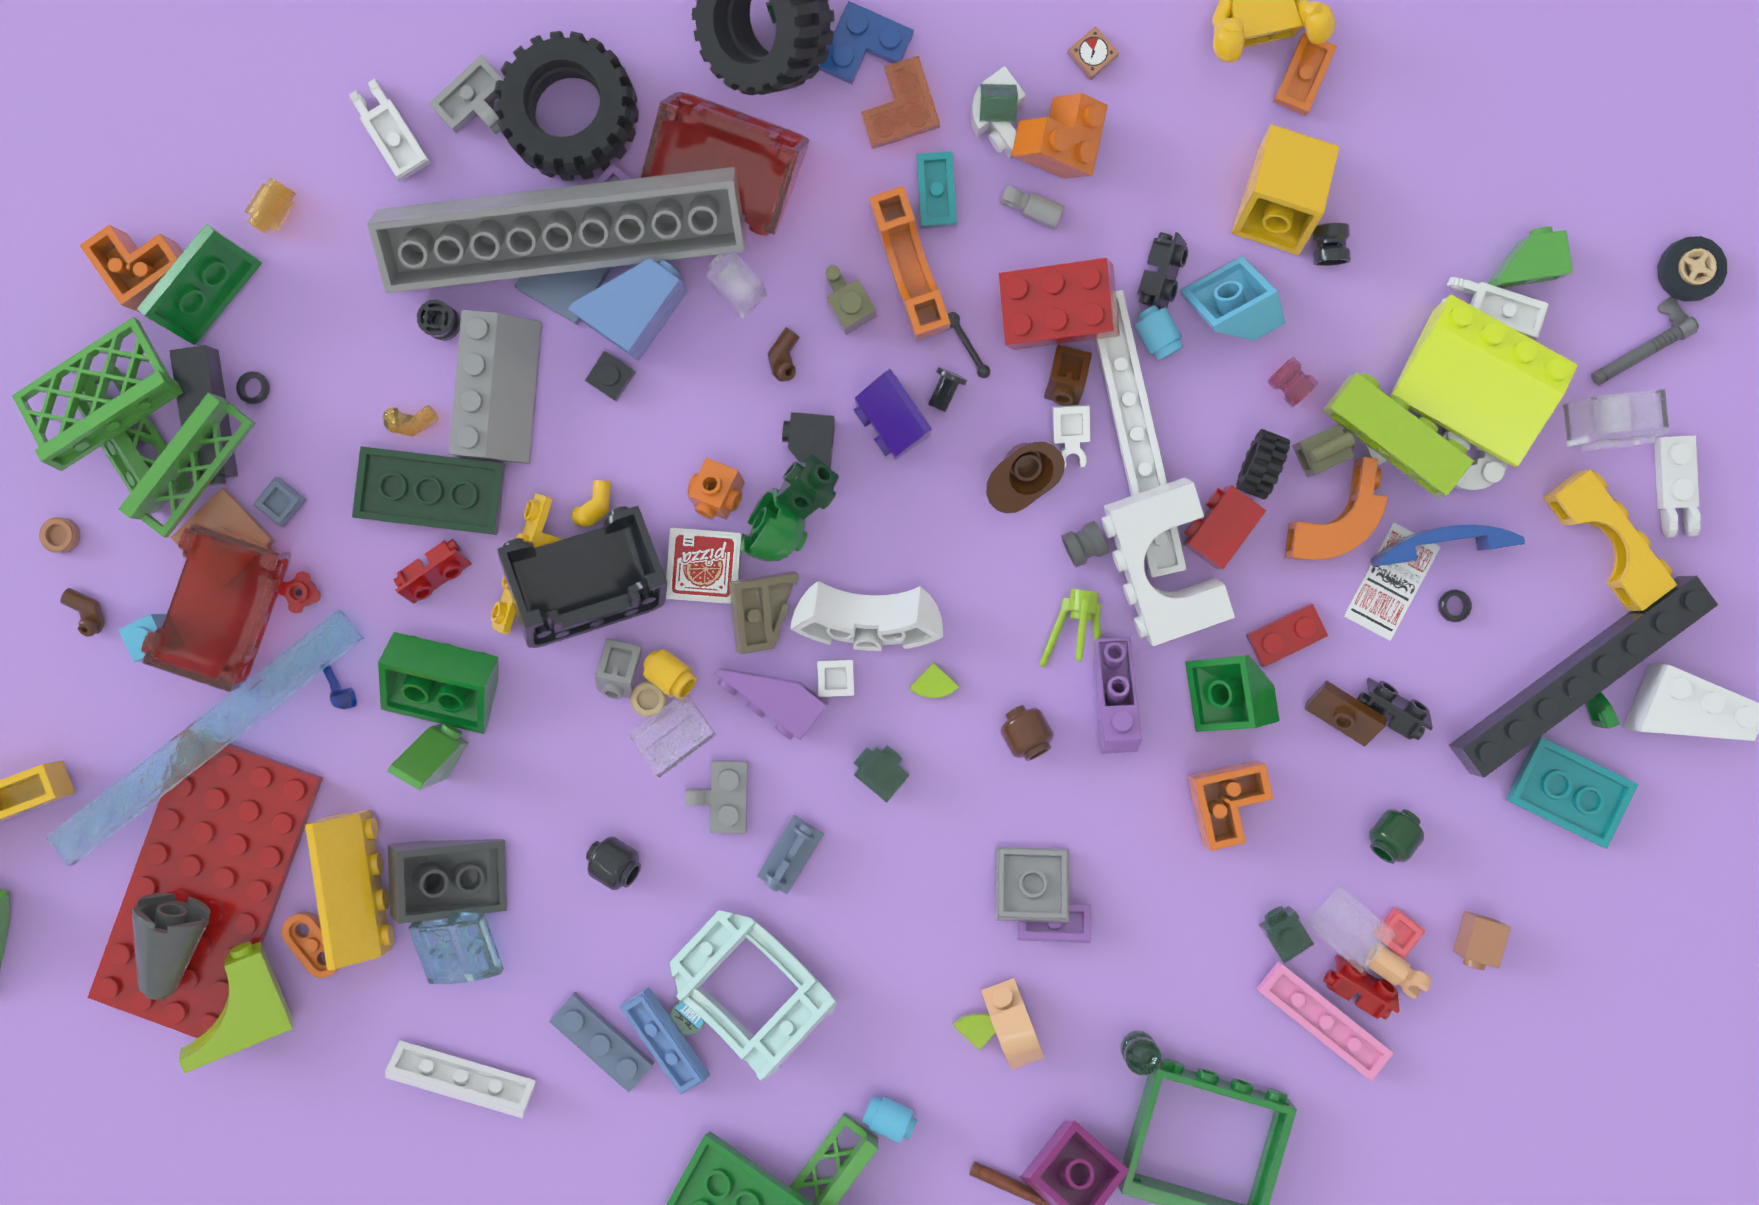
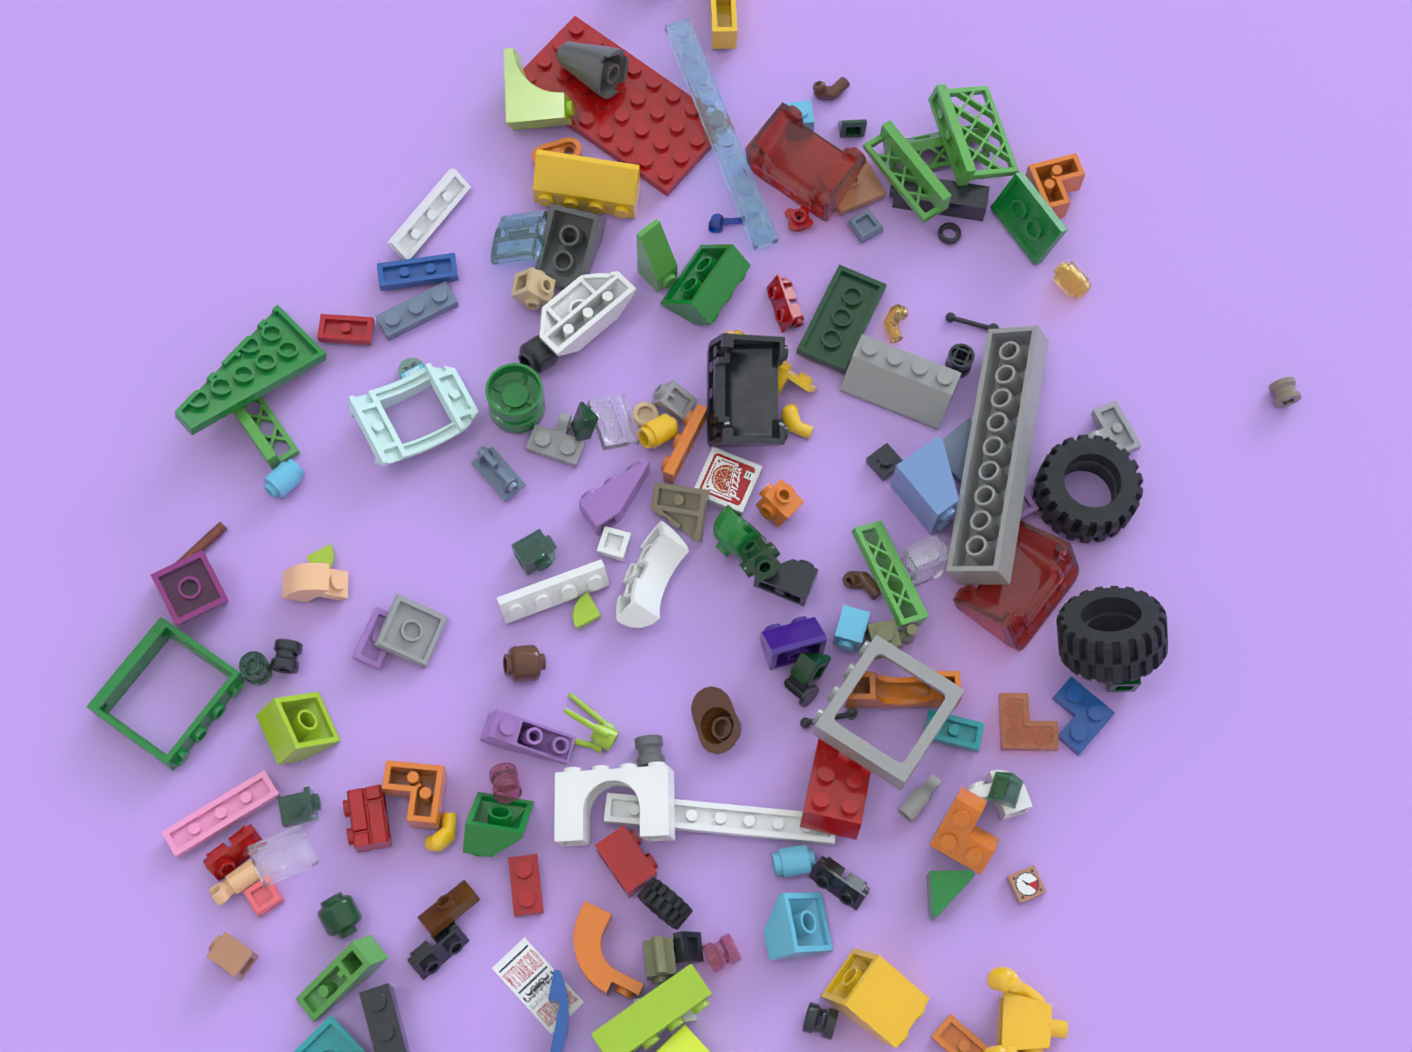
camera: 100 degrees right, 20 degrees down
(59, 535) = (886, 90): nougat tile -> none
(134, 564) = (852, 128): none -> slope
(375, 292) = (950, 317): none -> black hinge
(391, 133) = (1103, 371): white hinge -> none
(524, 903) = (533, 288): none -> tan brick
(536, 827) = (584, 311): none -> white wedge
(548, 1062) = (417, 271): none -> blue plate
(660, 1122) = (346, 329): none -> red plate
(664, 1040) = (401, 349): medium blue tile -> none
(673, 637) = (683, 443): none -> orange plate
(688, 869) = (515, 398): none -> green wheel
(689, 771) = (584, 422): none -> dark green slope
(763, 317) = (890, 574): none -> bright green fence
(850, 350) = (851, 628): none -> medium azure brick
(918, 384) = (810, 667): none -> dark green slope
(923, 320) = (861, 751): none -> light grey piece
(924, 730) = (553, 591): none -> white plate
(1068, 375) = (782, 781): reddish brown bracket -> none
(1071, 427) = (740, 771): white plate -> none
(1113, 1022) = (286, 656): none -> black wheel
(1133, 144) = (944, 887): none -> green slope
(1180, 701) = (505, 782): none -> clear pink wheel
(1194, 973) = (297, 727): none -> lime slope
(1261, 749) = (444, 836): none -> yellow arm
(1276, 846) = (368, 819): none -> red brick
(1299, 422) = (688, 947): none -> black plate
(1462, 804) = (342, 976): none -> bright green slope
(1467, 605) = (500, 1038): black piece -> none

